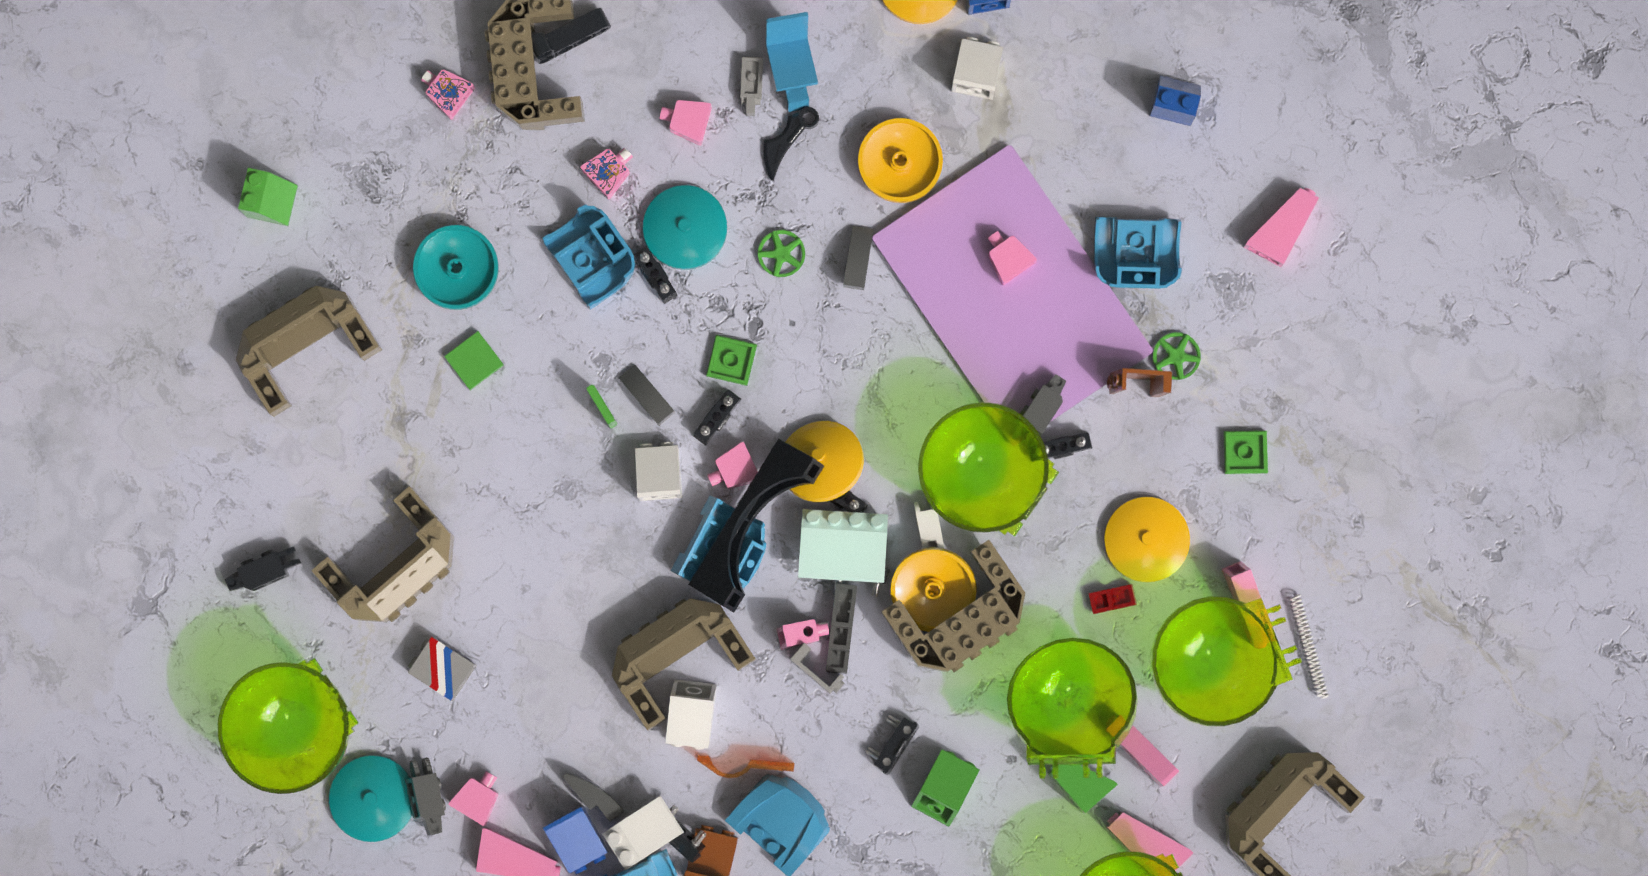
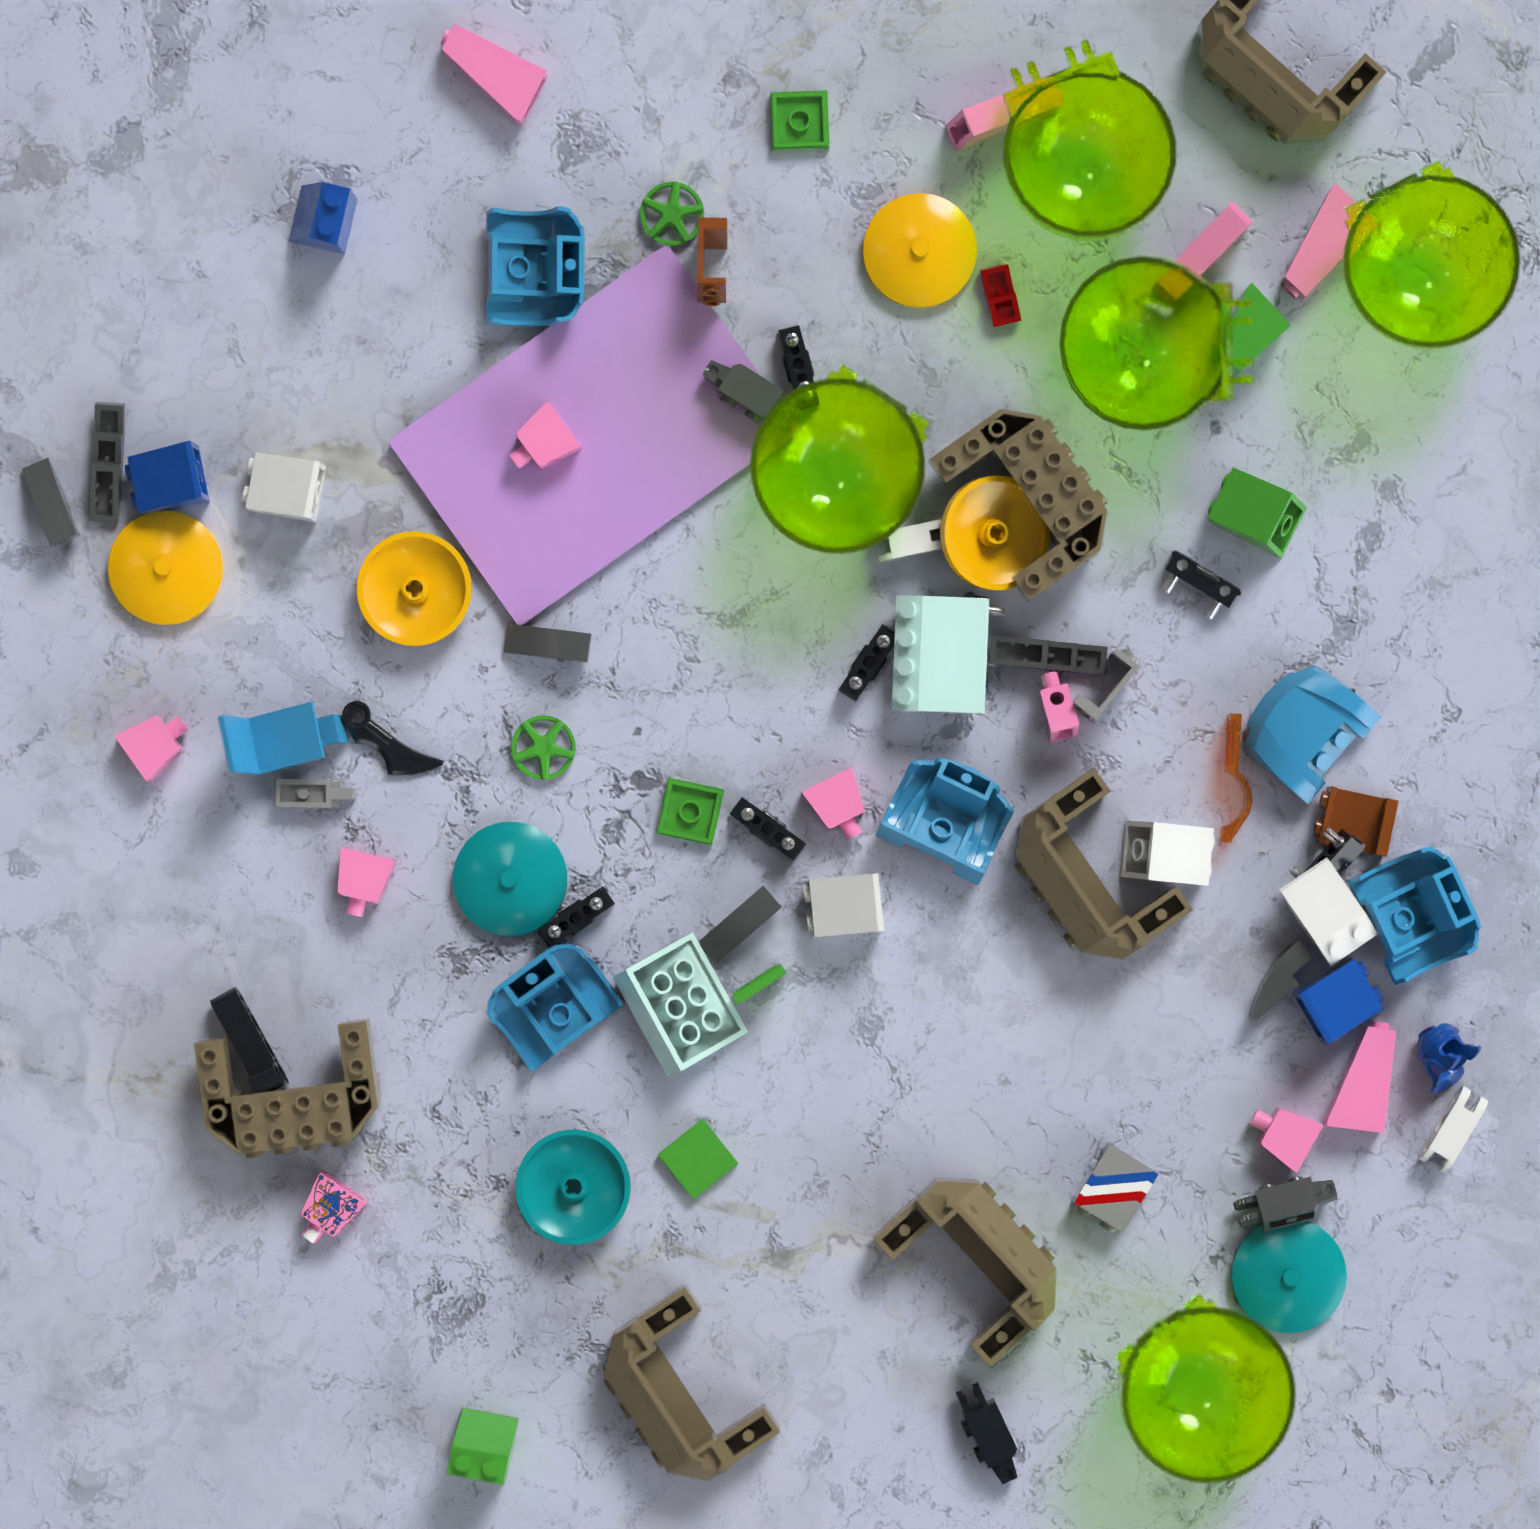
camera: 90 degrees left, 5 degrees up
(588, 349) = (680, 1004): none -> light aqua slope
(608, 170) = (435, 985): torso -> none
(719, 570) = (980, 819): black arch -> none
(839, 453) = (826, 686): yellow dish -> none
(1309, 647) = (1059, 31): white piece -> none

